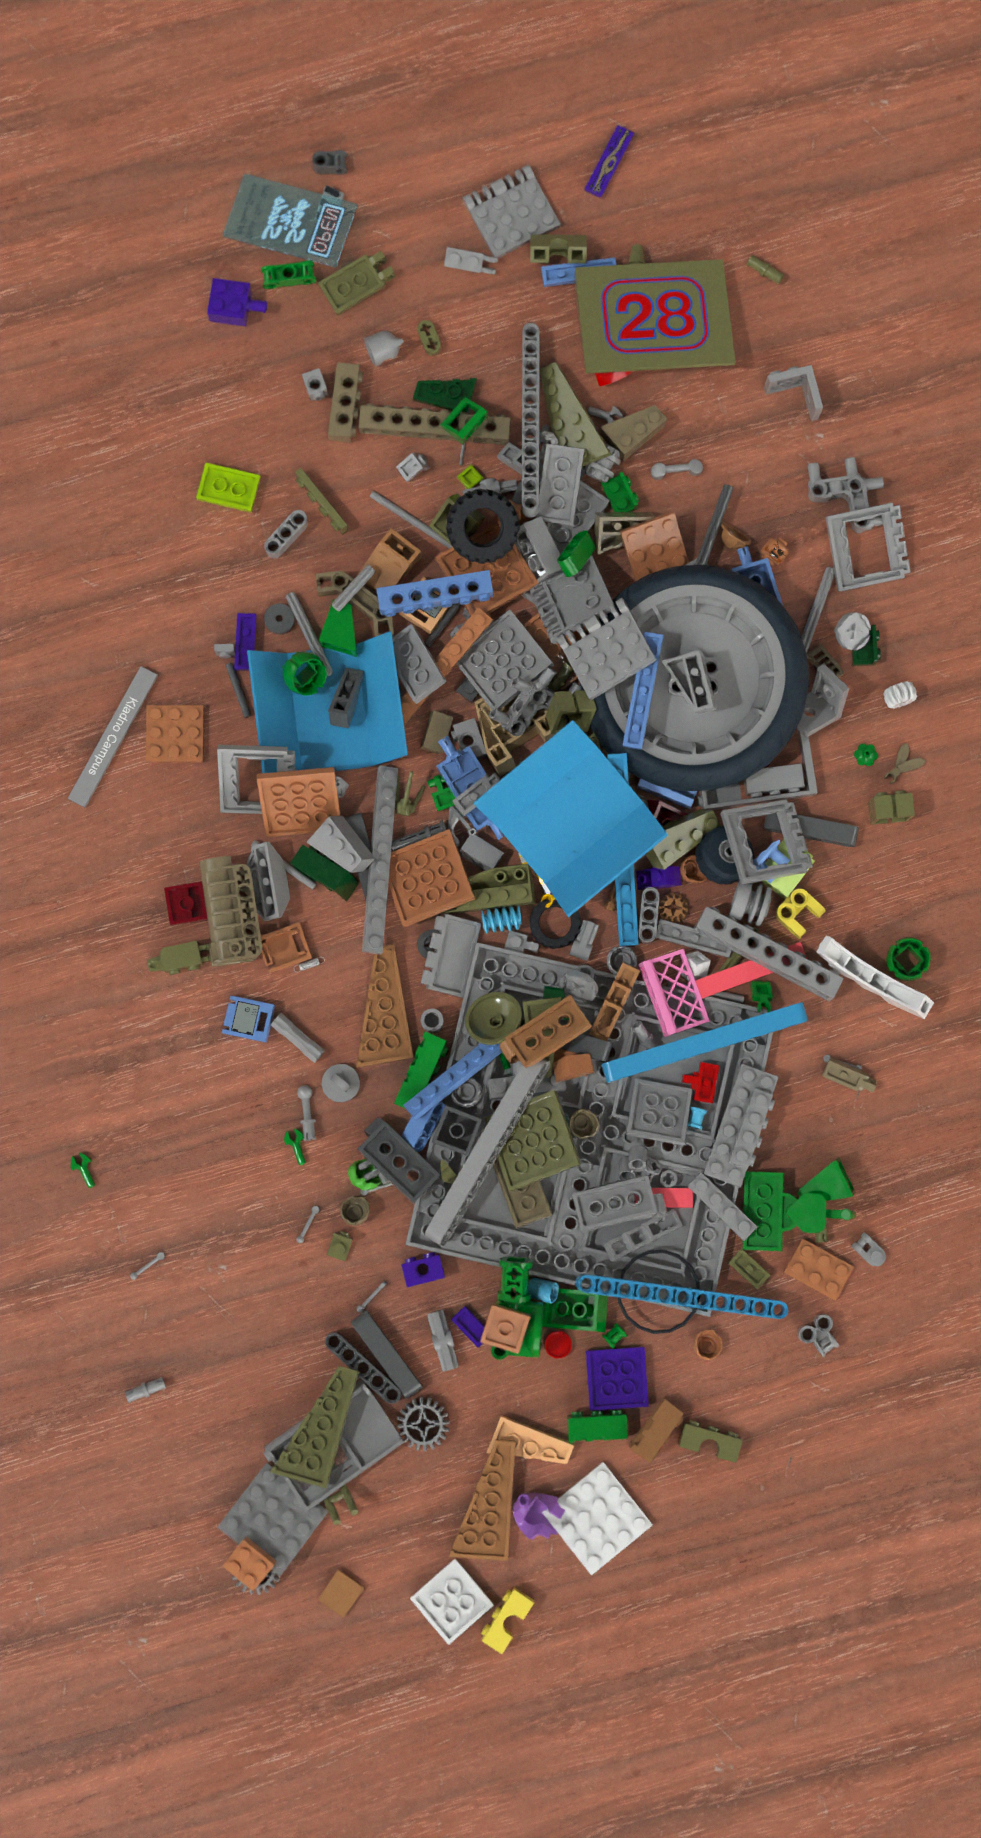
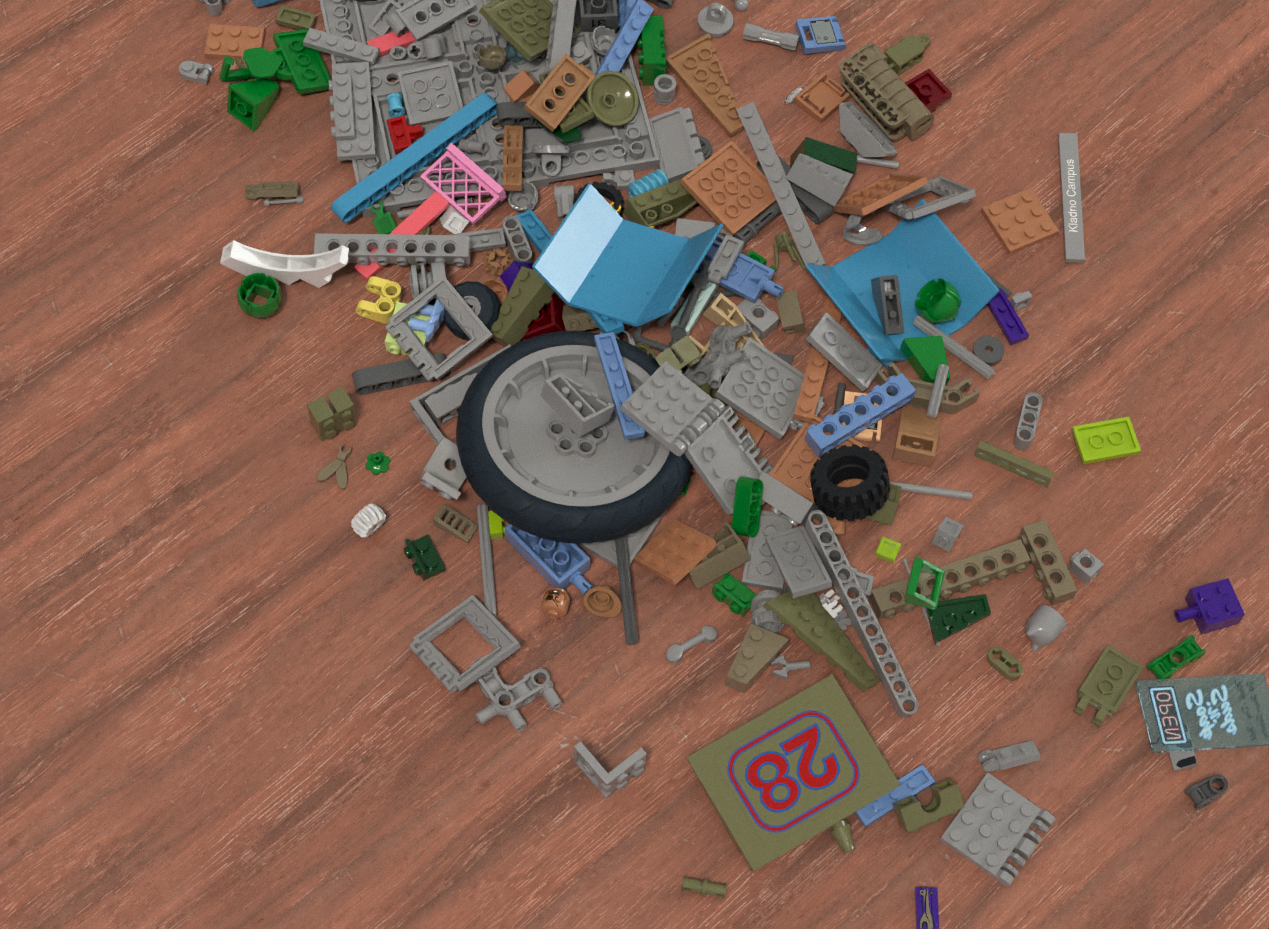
camera: 150 degrees right, 20 degrees down
(493, 484) = (864, 541): light grey axle -> none
(853, 631) = (443, 554): light grey tile -> none

